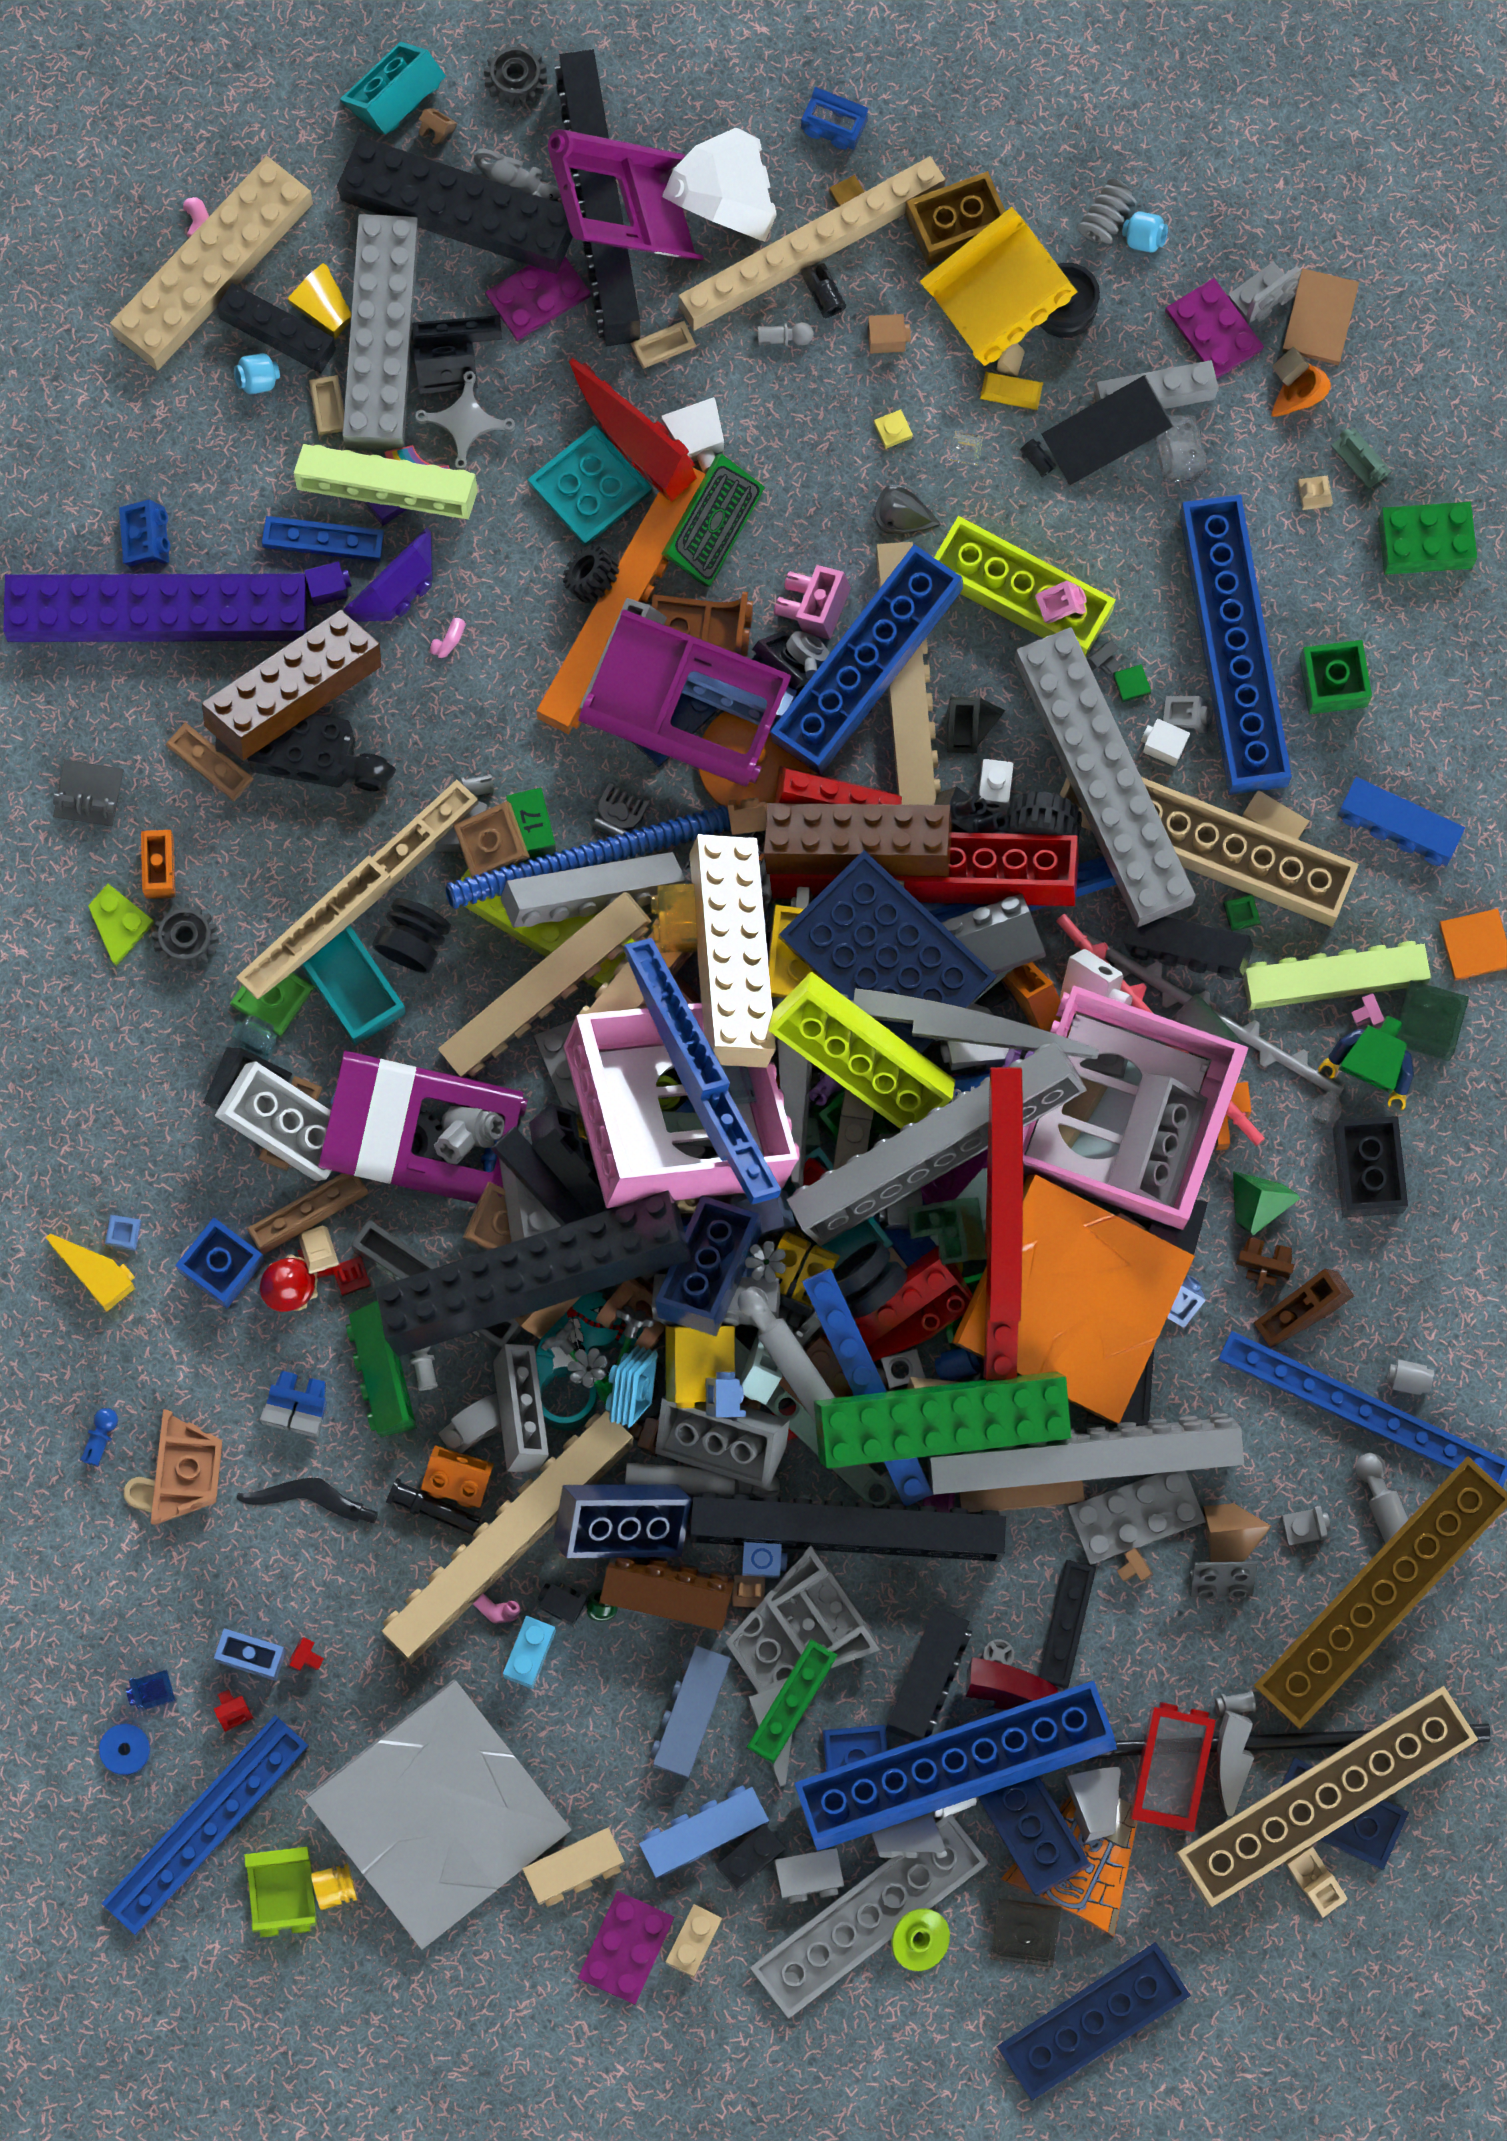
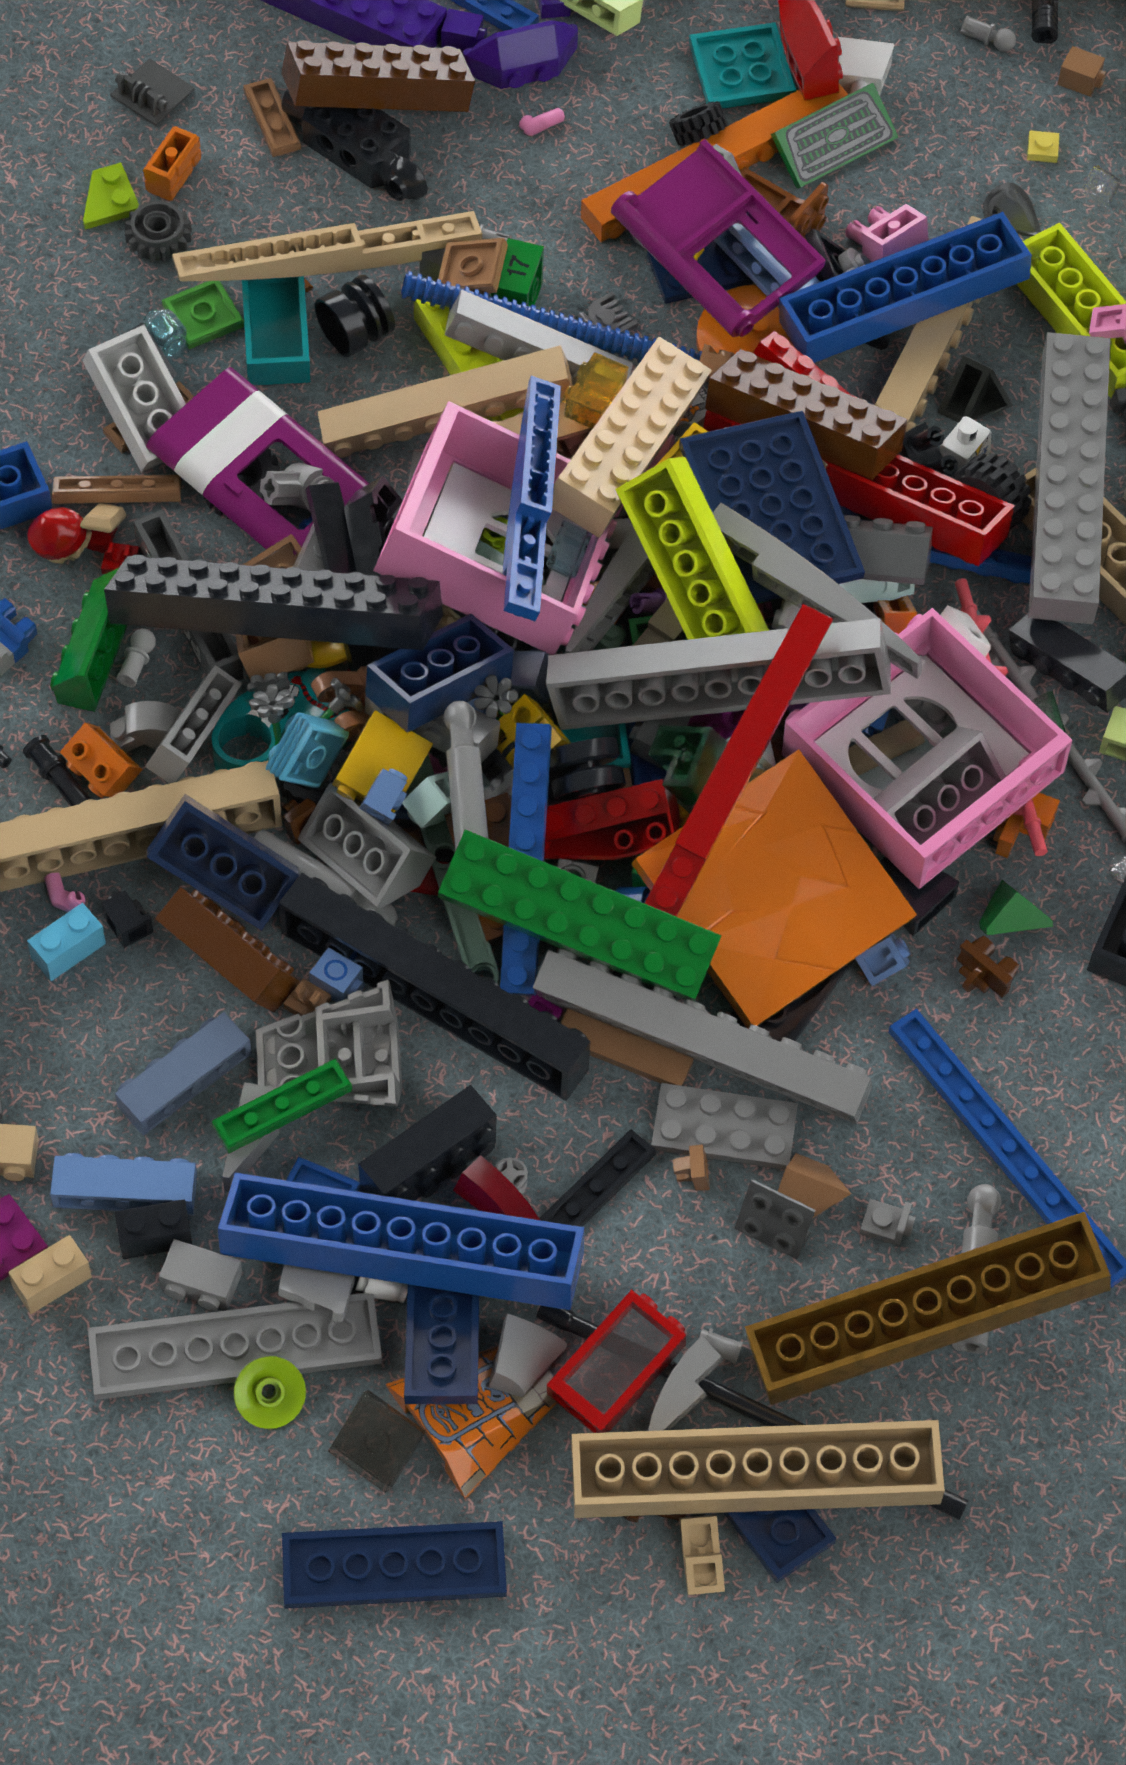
camera: 30 degrees right, 15 degrees down
(599, 1611) = (162, 938): dark green tile -> none
(1304, 1307) = (1003, 1024): reddish brown slope -> none
(1410, 1377) = (1072, 1140): light grey brick -> none

